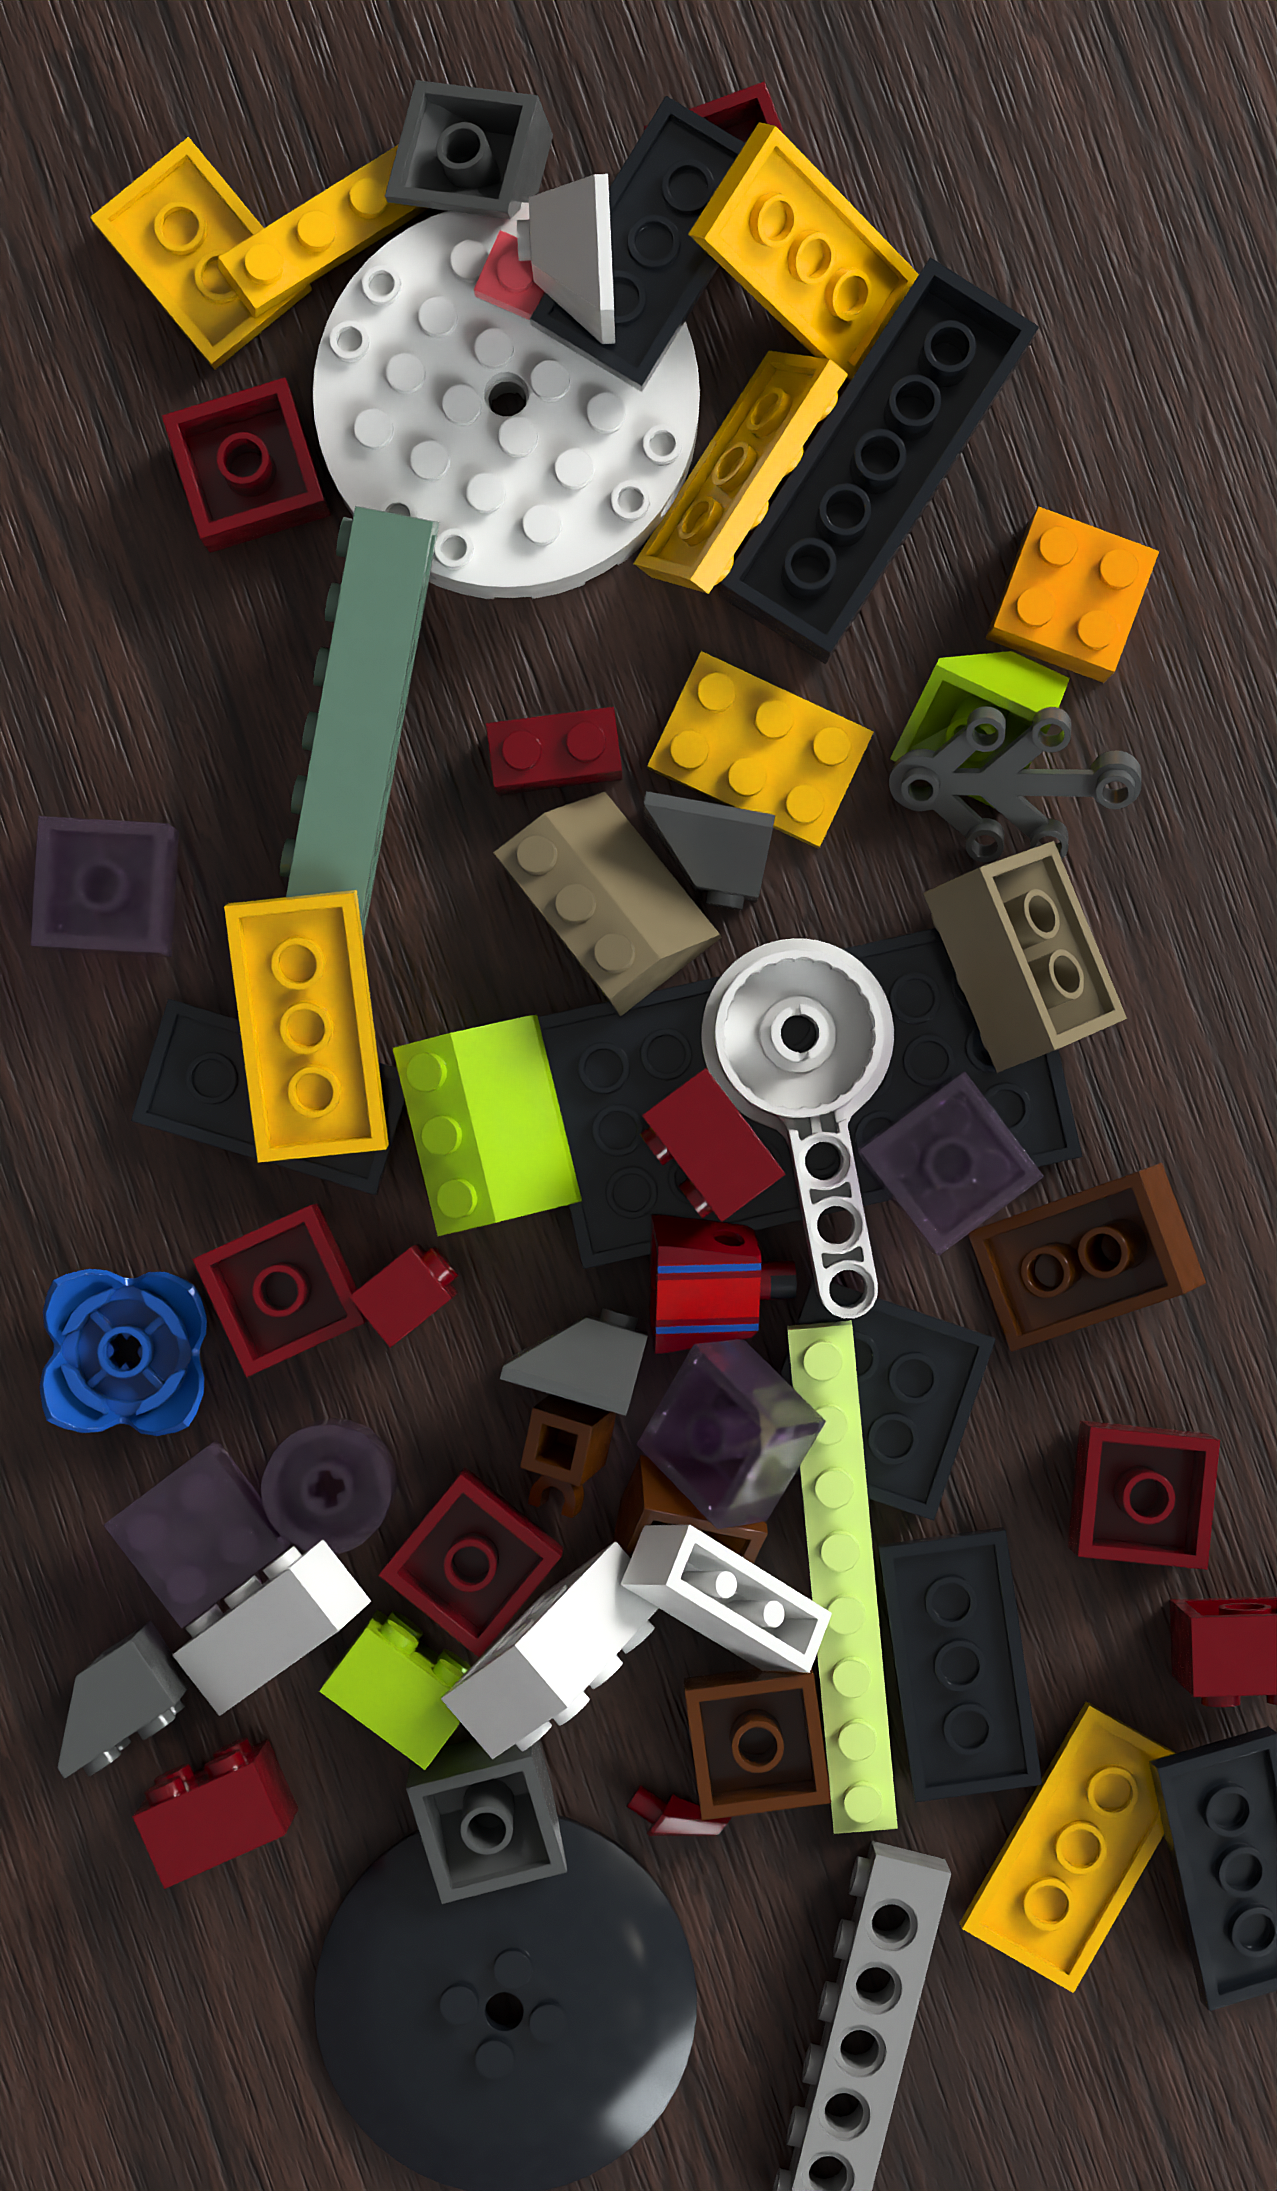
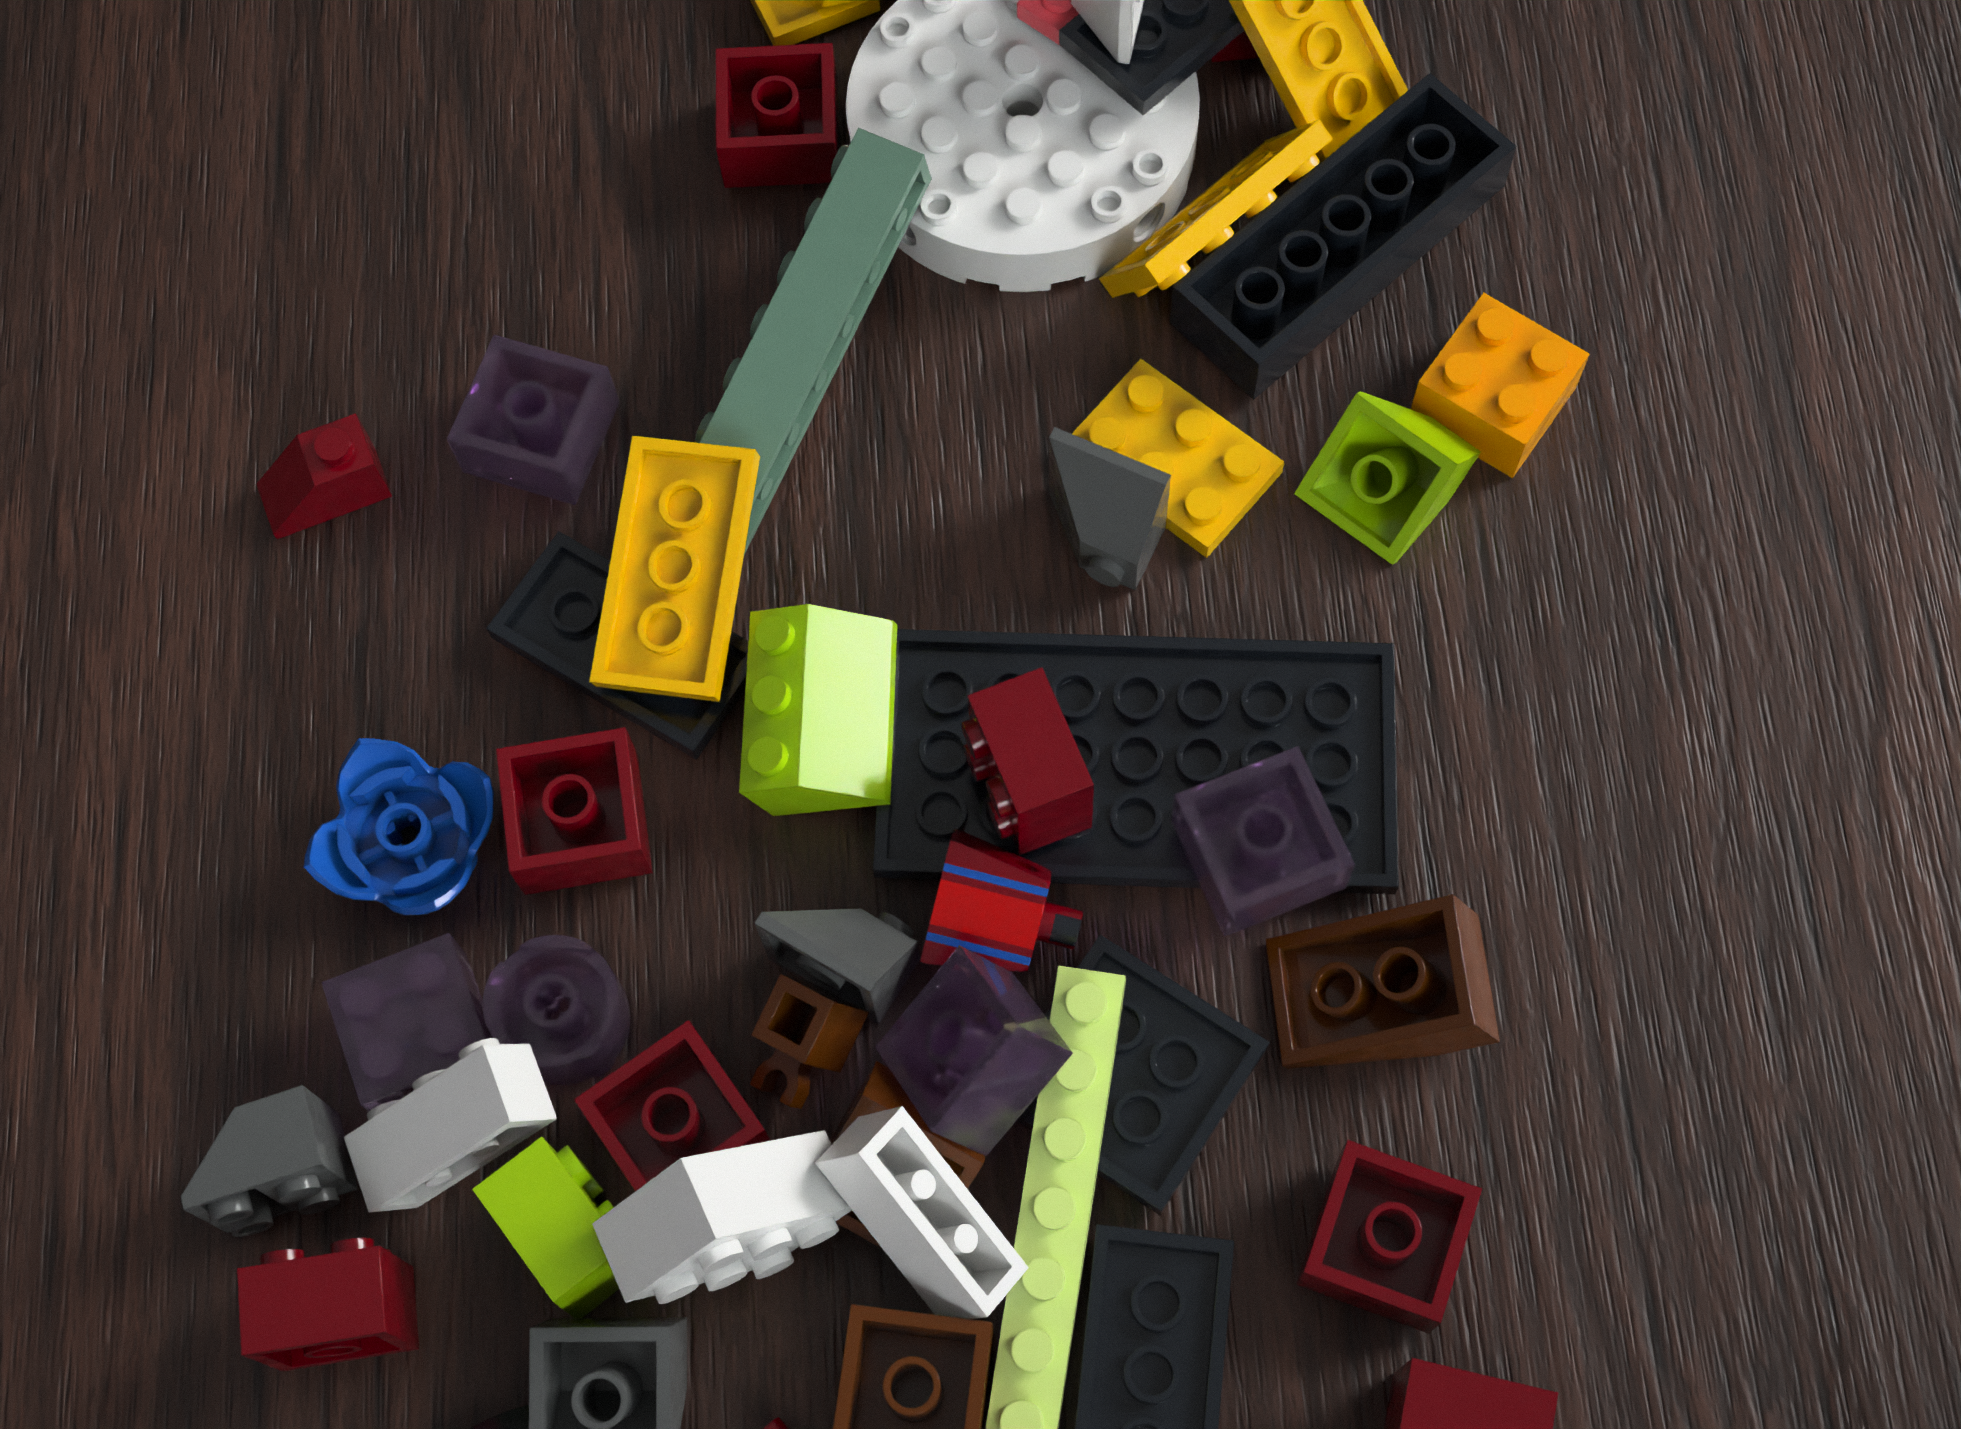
camera: 20 degrees right, 20 degrees down
(406, 1292) = (693, 838): dark red brick -> none
(554, 751) = (981, 405): dark red brick -> none
(607, 898) = (991, 539): dark tan slope -> none
(808, 1092) = (1145, 753): white beam -> none
(1005, 781) = (1397, 522): dark grey plant -> none
(1024, 956) = (1381, 675): dark tan slope -> none

